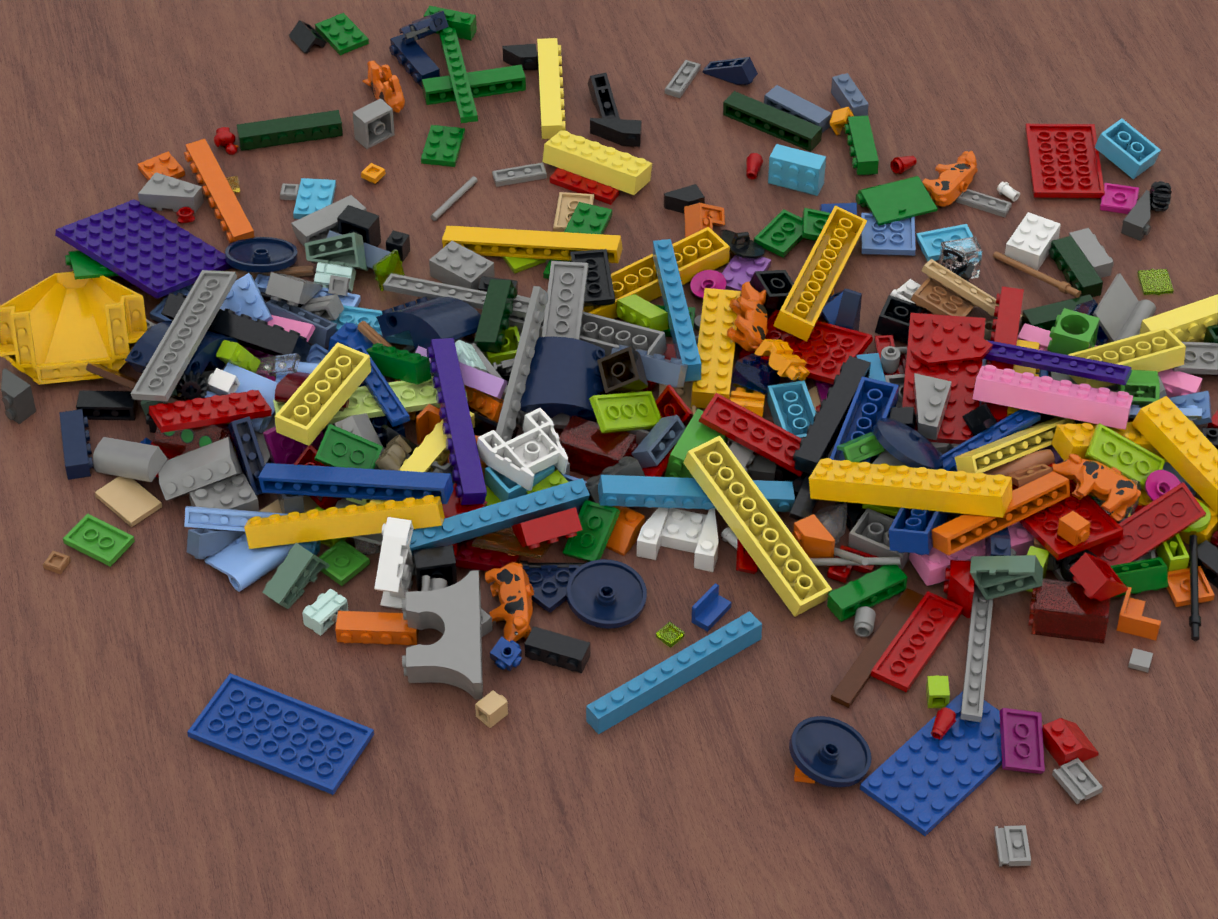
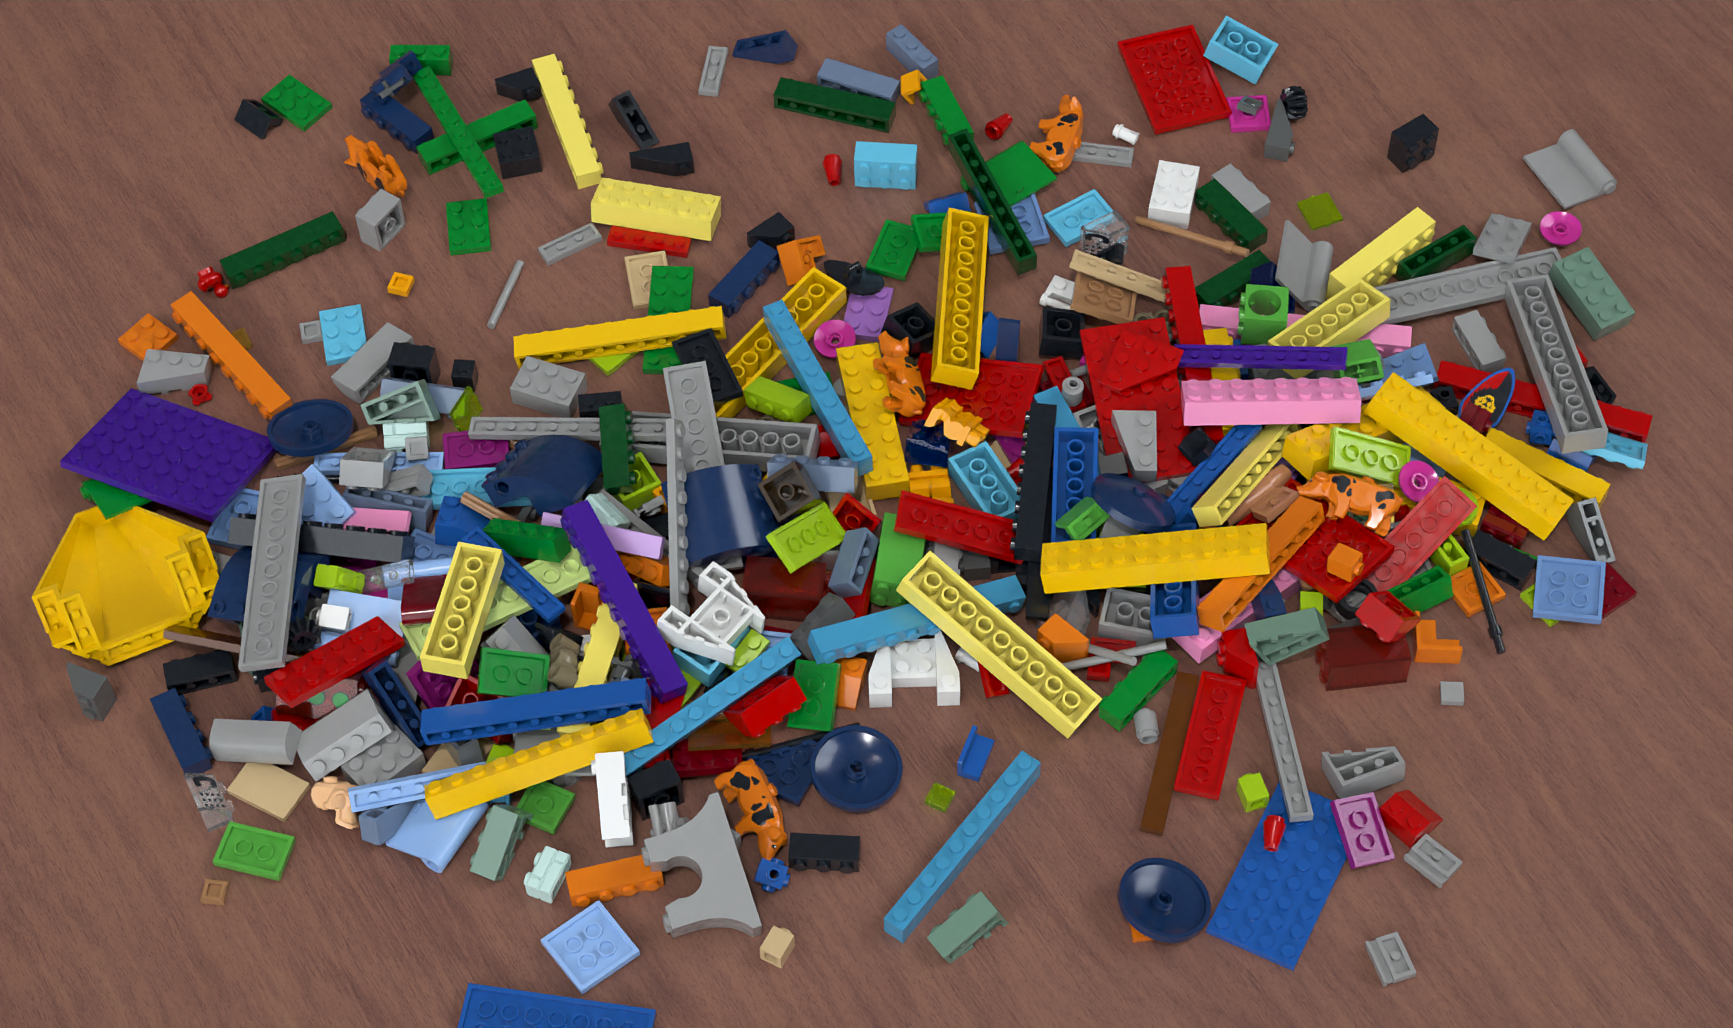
camera: 15 degrees left, 10 degrees up
(77, 493) = (210, 800): none -> clear slope
(174, 512) = (334, 795): none -> light nougat head
(338, 672) = (590, 947): none -> light blue plate
(376, 298) = (465, 453): none -> magenta plate
(501, 101) = (517, 152): none -> black brick
(651, 226) = (744, 278): none -> dark blue brick
(655, 731) = (965, 927): none -> sand green wedge
(874, 211) = (992, 202): none -> dark green brick
(1048, 696) = (1363, 771): none -> light grey wedge
(1121, 190) = (1249, 105): none -> dark grey tile

